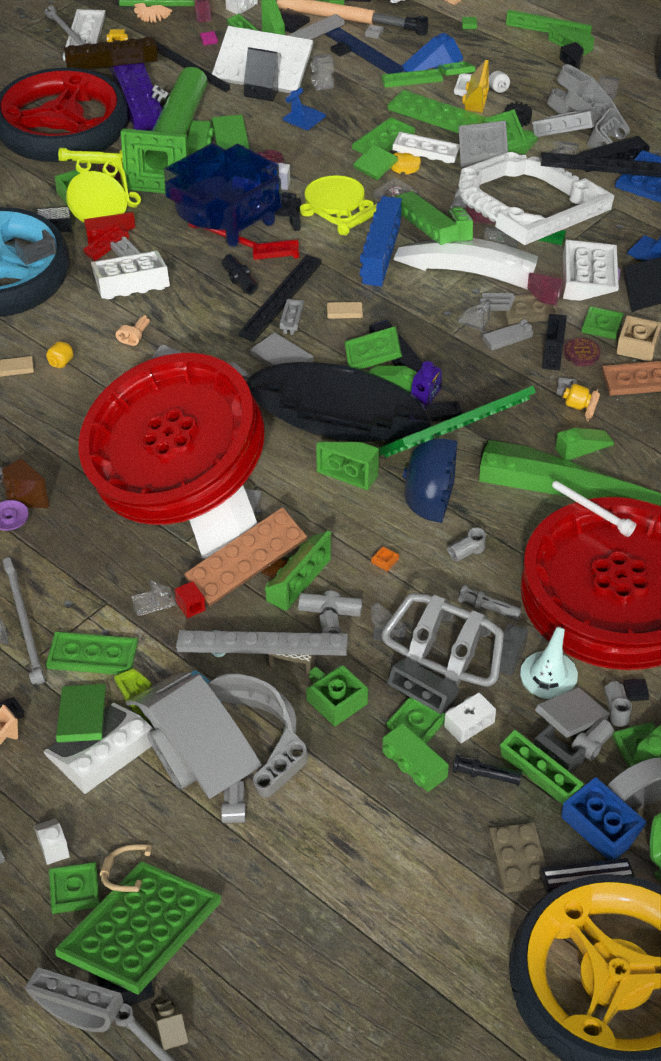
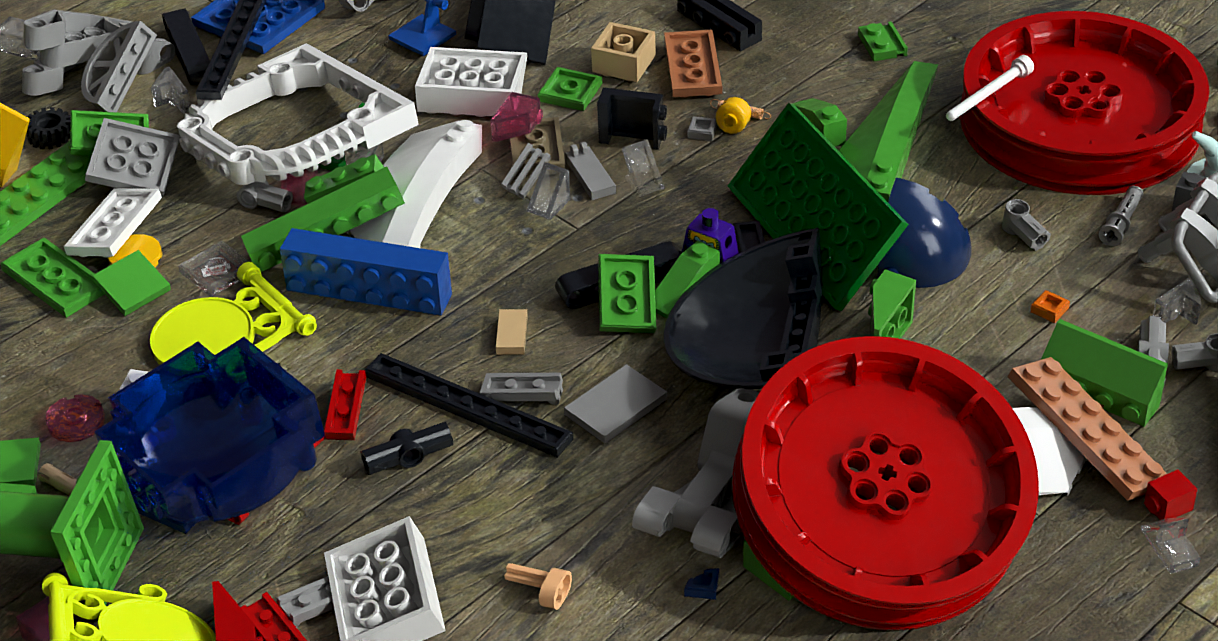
camera: 85 degrees left, 5 degrees down
(504, 355) = (643, 170): none -> clear slope

